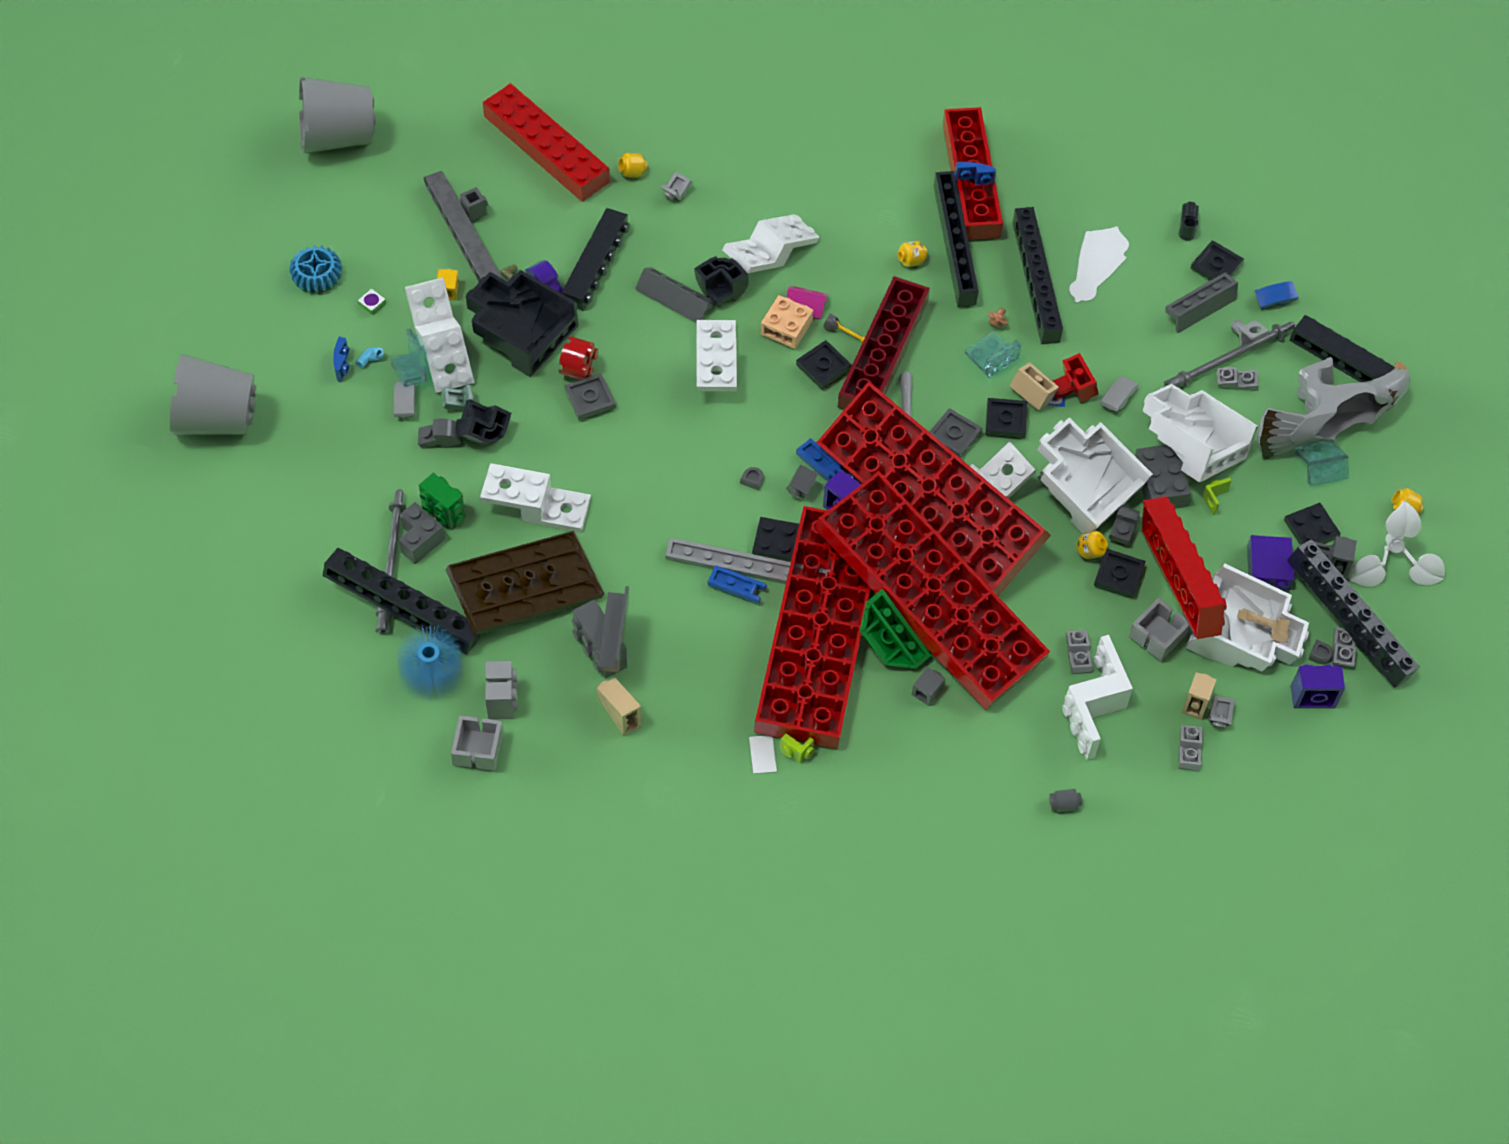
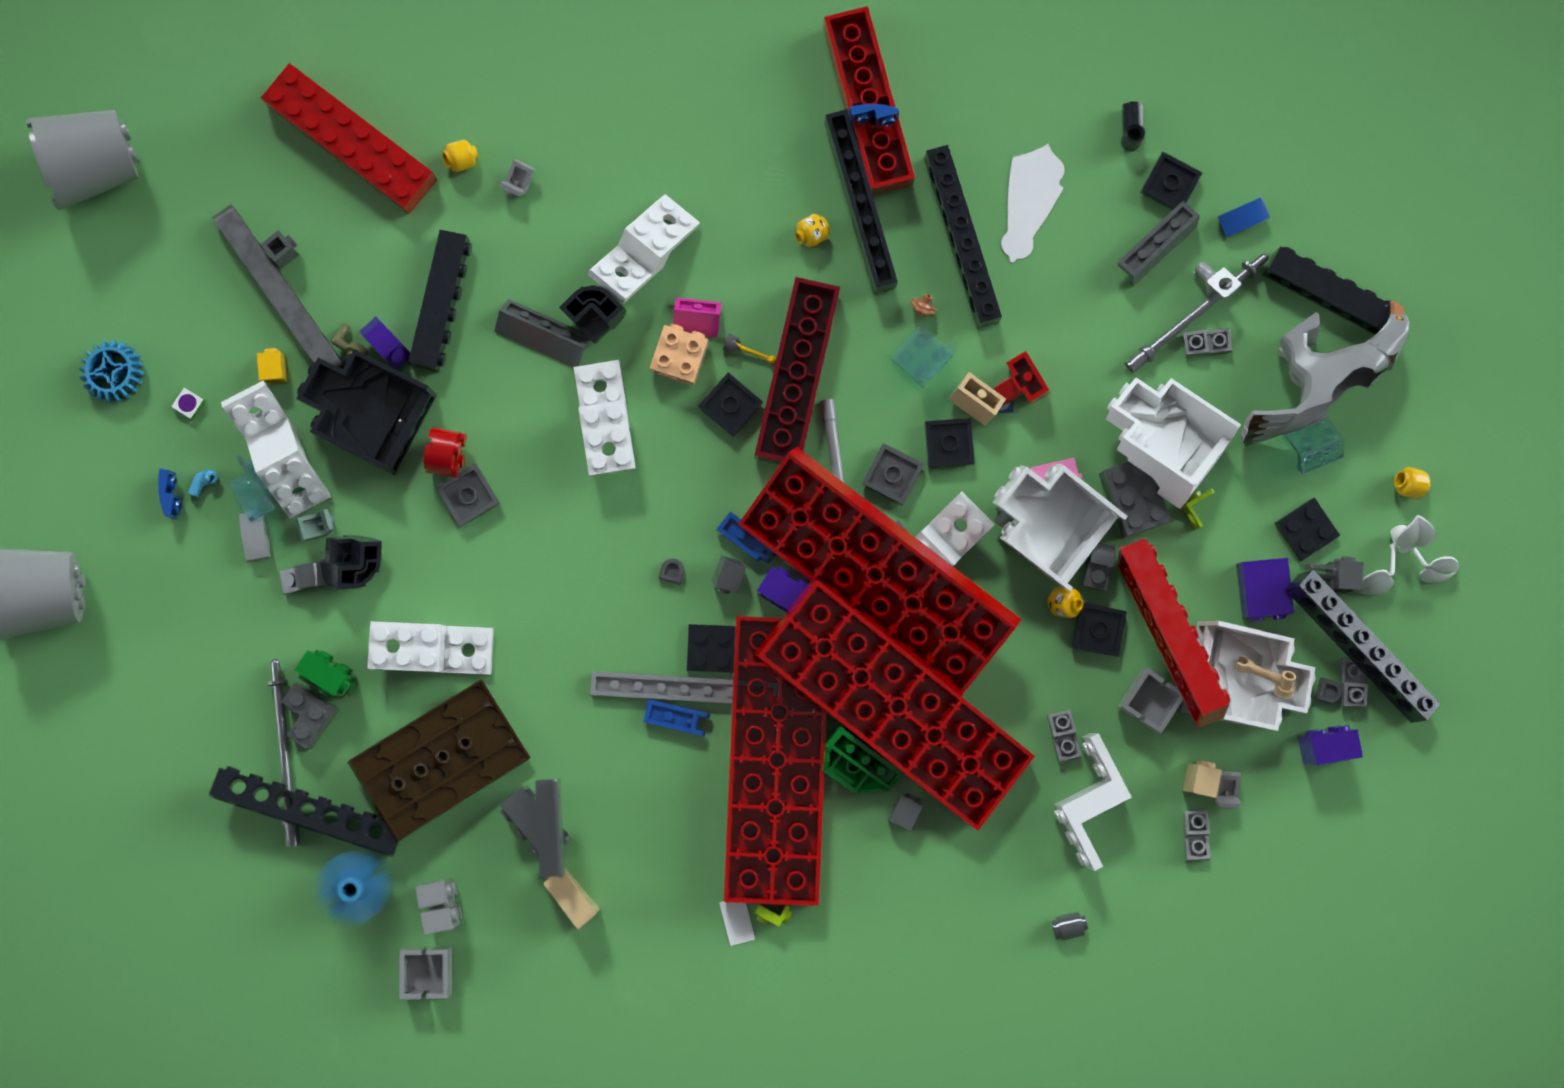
camera: 15 degrees left, 25 degrees up
(1118, 394) = (1075, 388): light grey slope -> none

